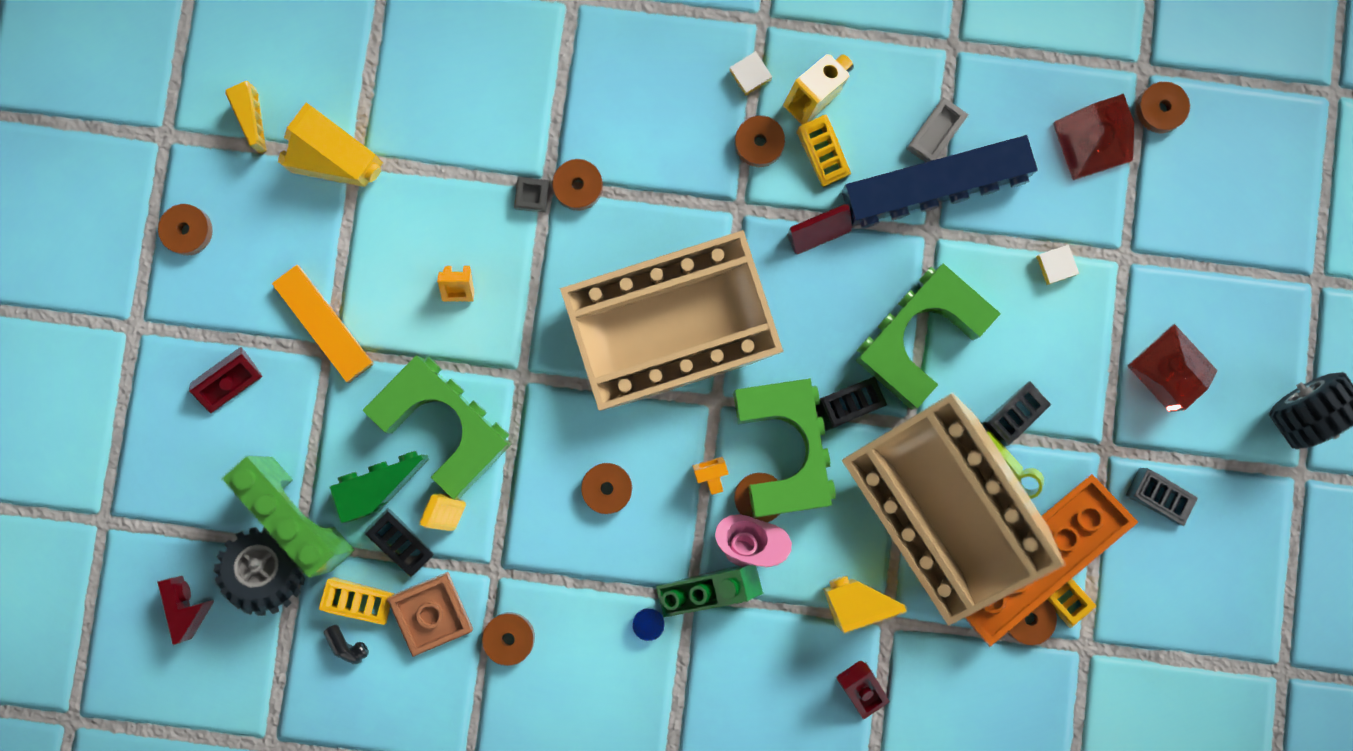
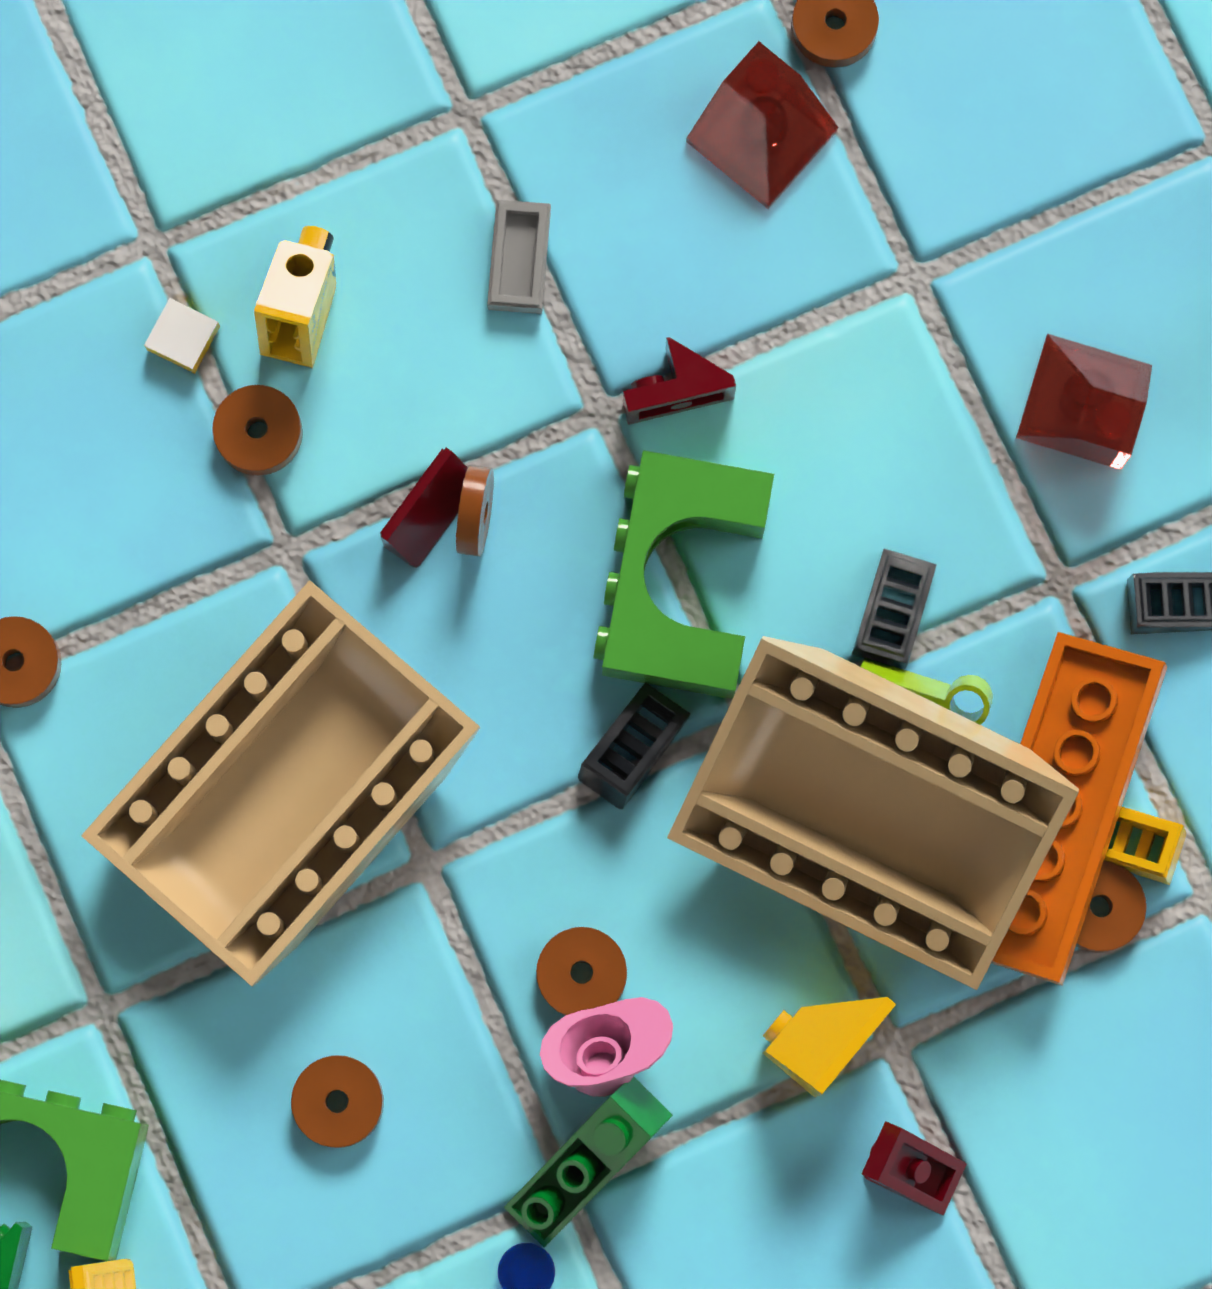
camera: 30 degrees left, 5 degrees down
(711, 472) = (482, 978): light orange tile -> none
(794, 404) = (549, 798): bright green arch -> none
(808, 144) = (356, 358): yellow slope -> none
(842, 243) = (474, 510): none -> dark orange piece
(939, 181) = (565, 331): dark blue brick -> none
(985, 245) = (693, 386): none -> dark red slope
(1057, 264) = (819, 349): white tile -> none

